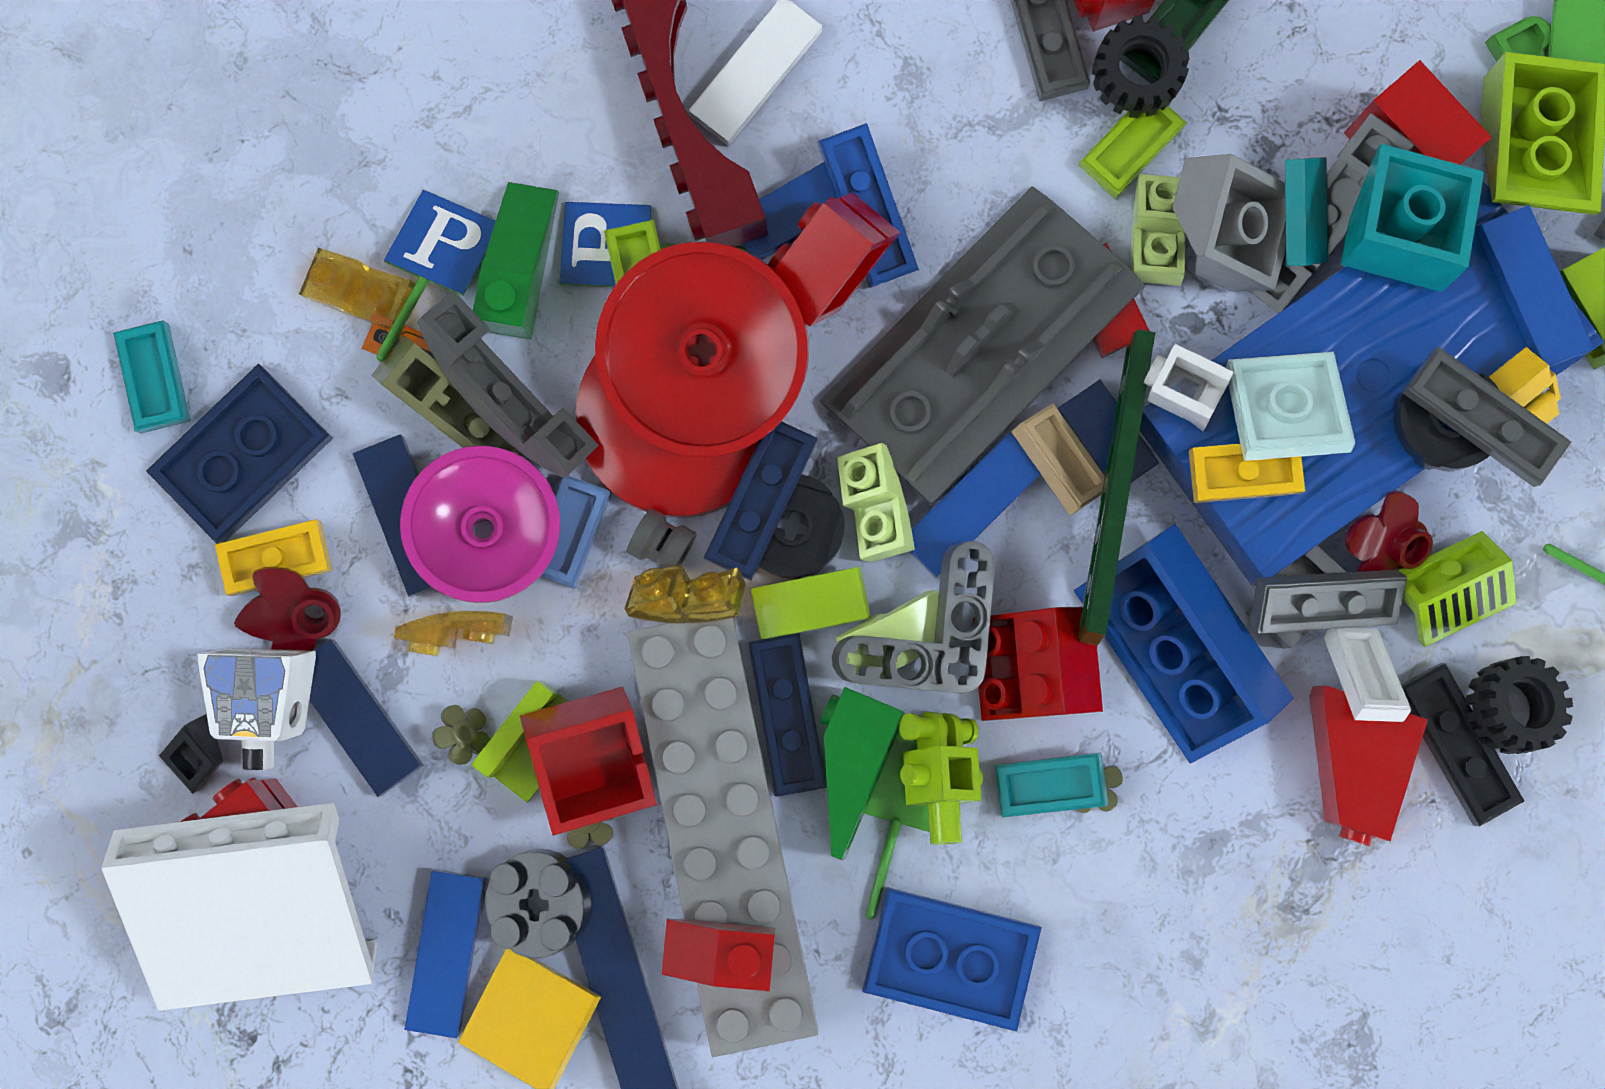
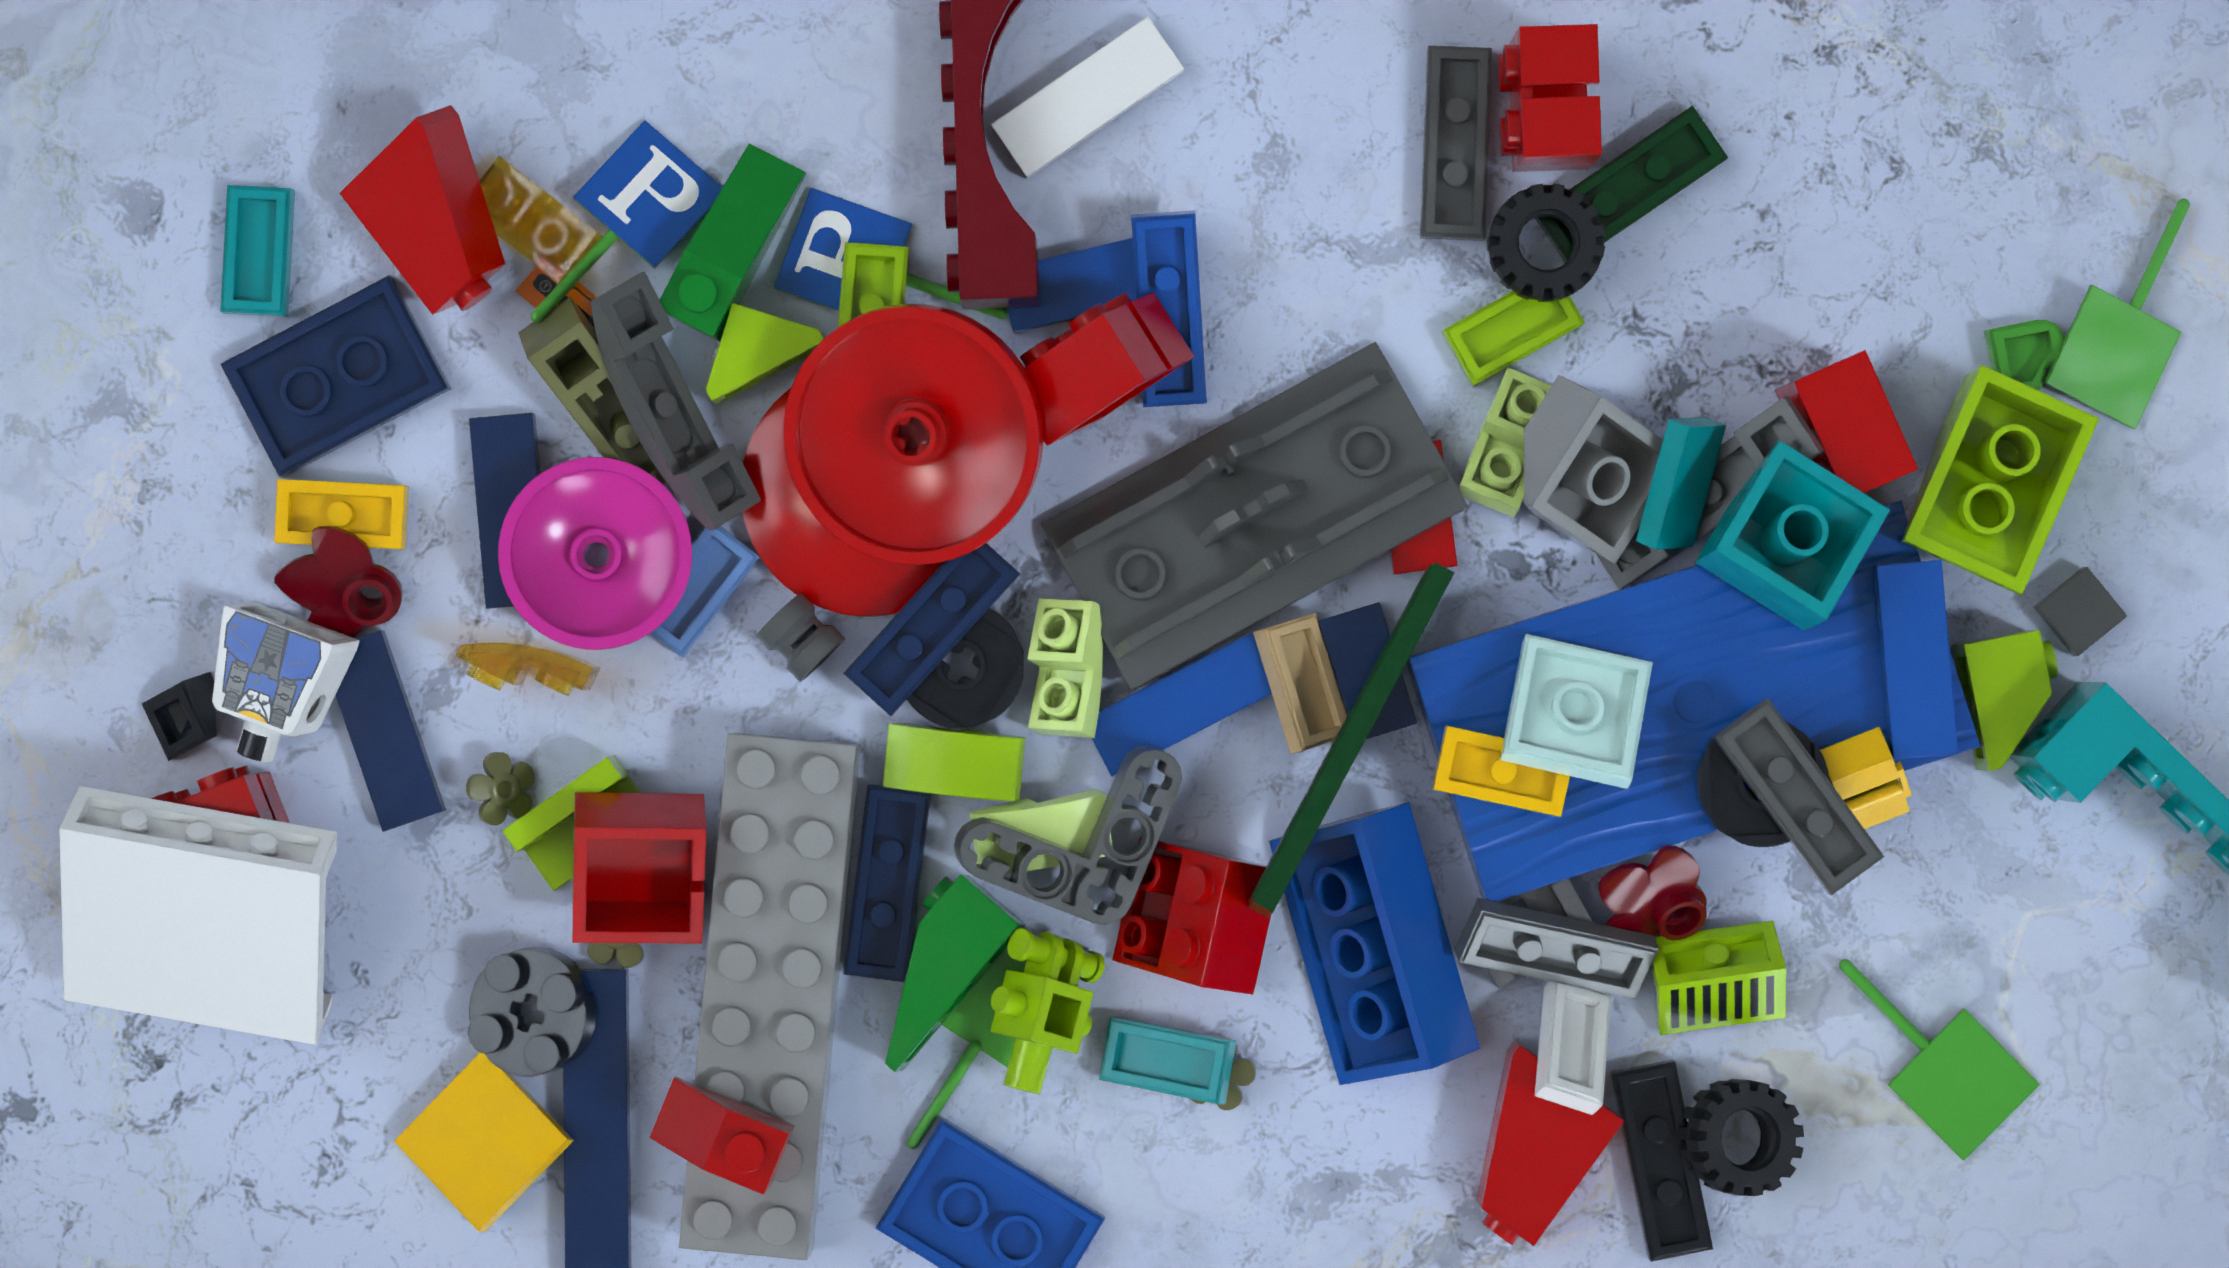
camera: 20 degrees right, 5 degrees up
(274, 300) = (430, 212): none -> red slope
(445, 953) = (409, 1035): blue tile -> none
(560, 332) = (755, 349): none -> lime slope
(672, 597) = (795, 711): clear yellow slope -> none
(1187, 385) = (1464, 651): white window -> none

